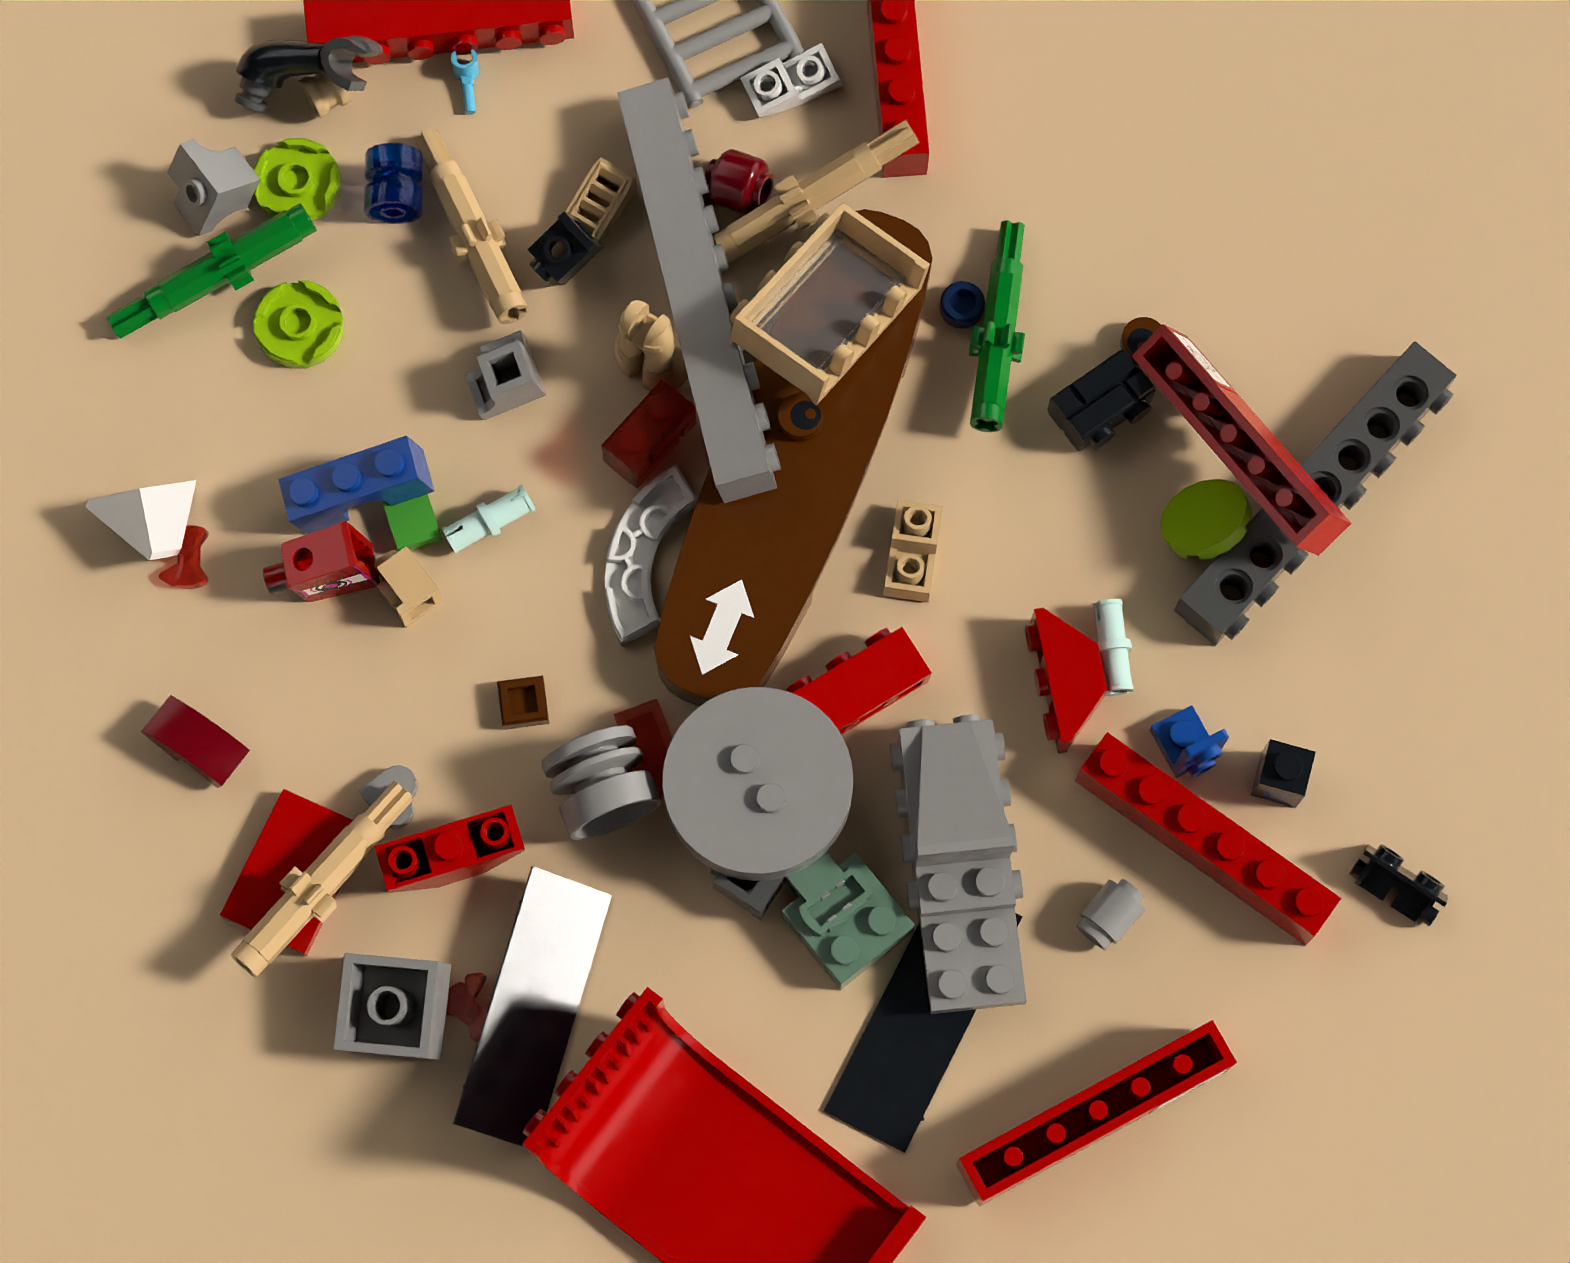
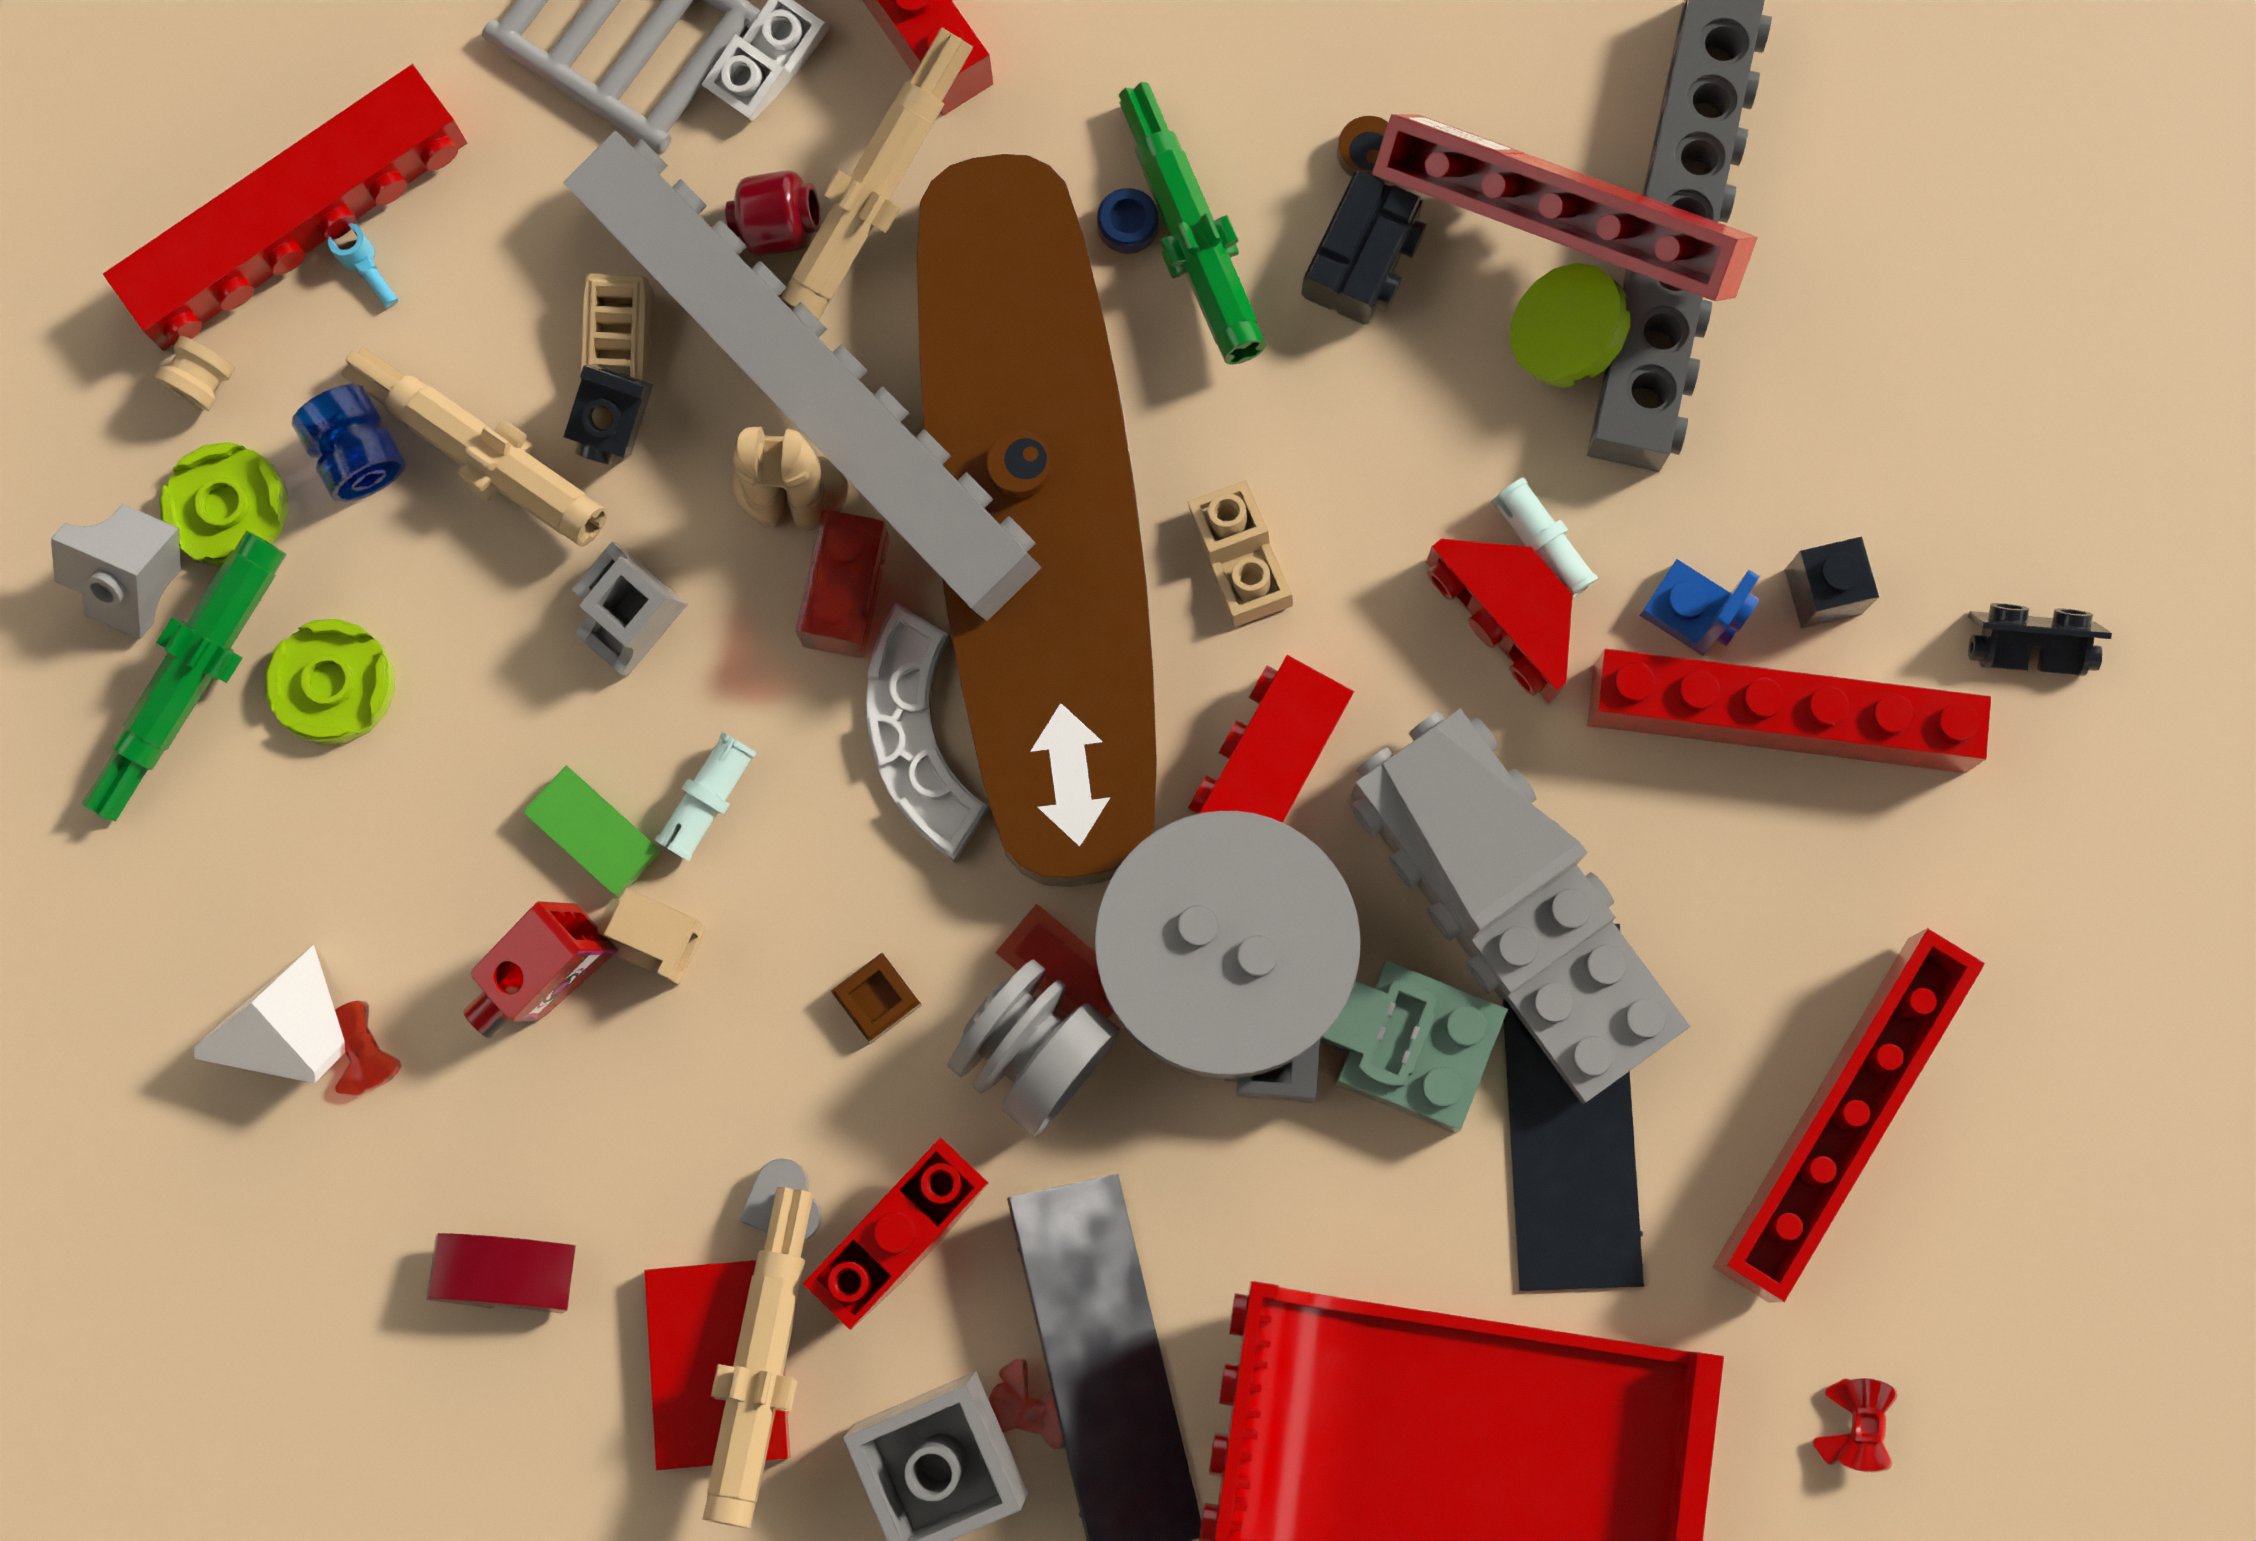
camera: 25 degrees left, 5 degrees up
(274, 61) = (109, 371): piece -> none
(385, 472) = (540, 817): blue arch -> none
(828, 301) = (975, 303): window -> none
(1111, 913) = (1725, 862): light grey brick -> none

